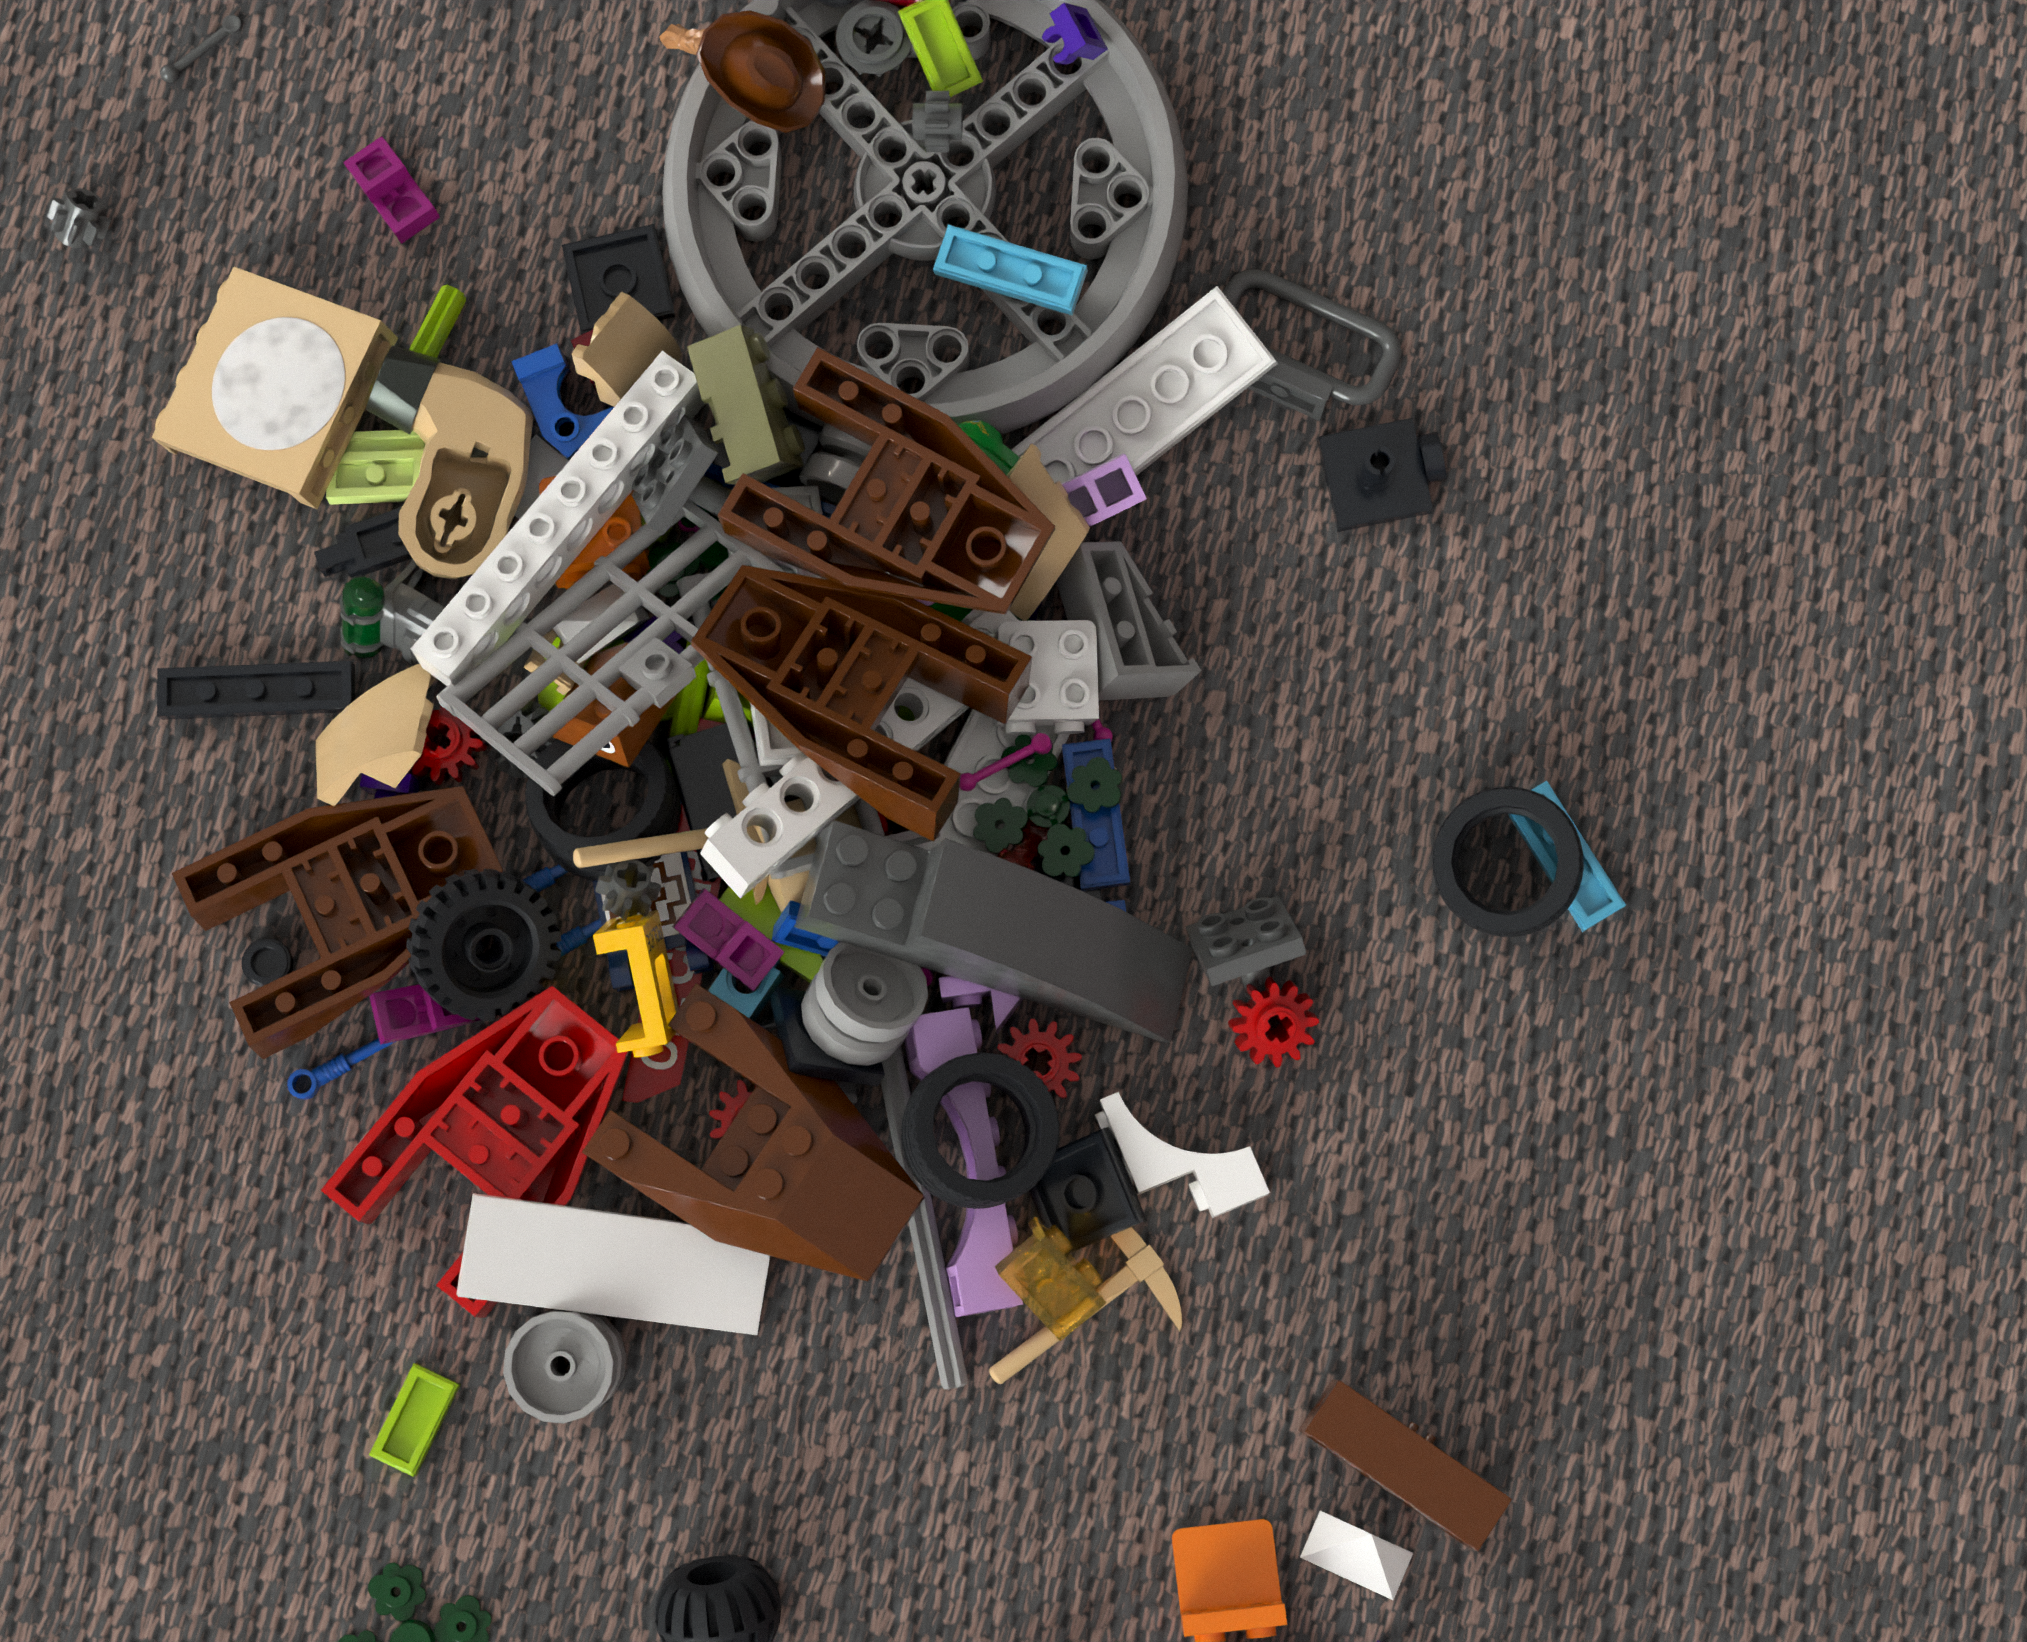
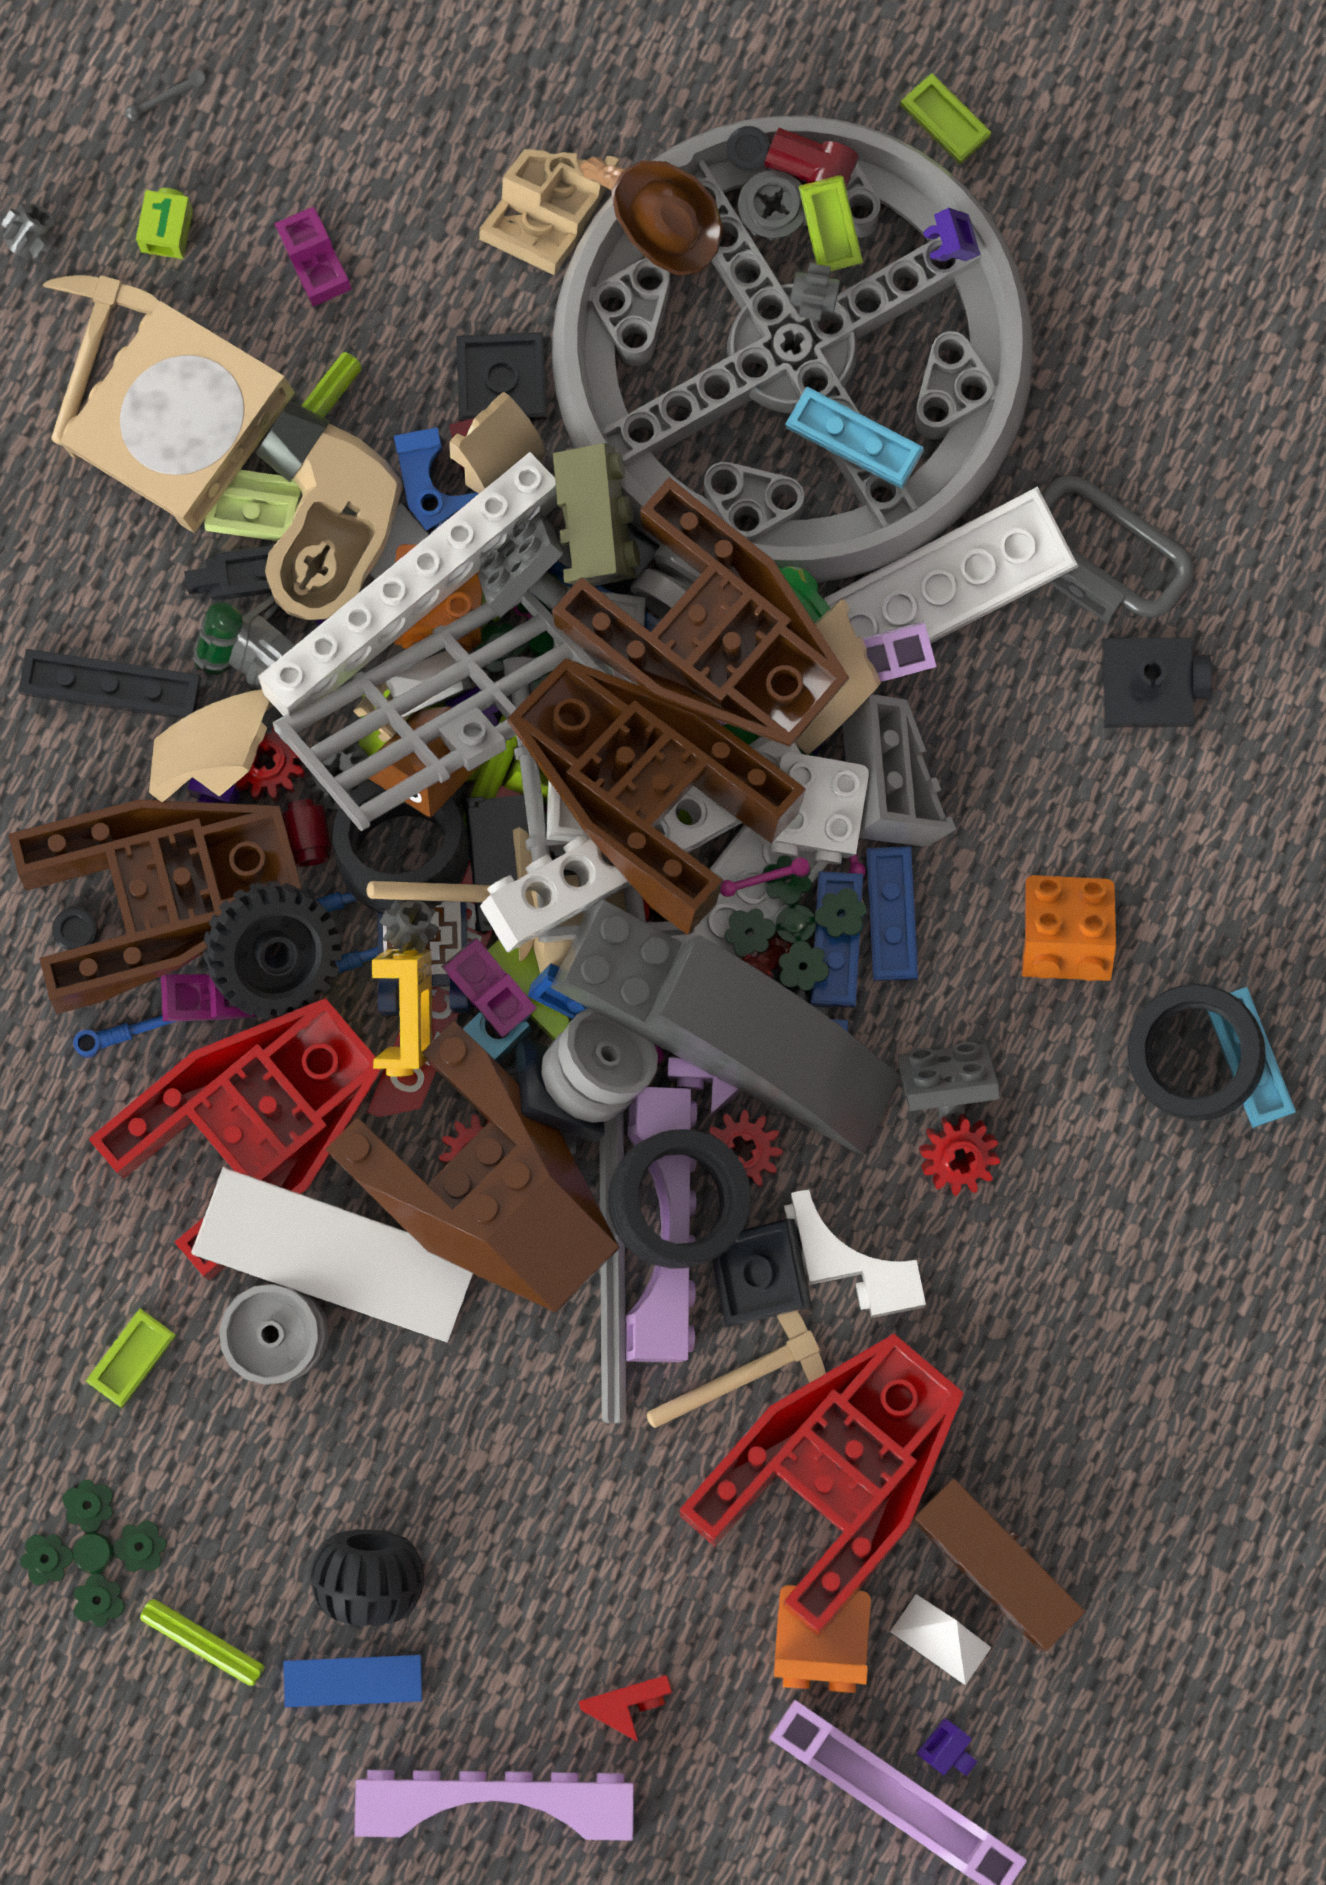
camera: 10 degrees right, 0 degrees up
(175, 272) = (105, 294): none -> tan piece
(224, 183) = (164, 223): none -> lime brick
(500, 809) = (307, 832): none -> dark red brick
(640, 85) = (553, 205): none -> tan slope
(1052, 1281) = (717, 1344): clear yellow bracket -> none
(1149, 775) = (892, 914): none -> blue tile
(1222, 1366) = (855, 1451): none -> red wedge
(1343, 754) = (1069, 928): none -> orange bracket

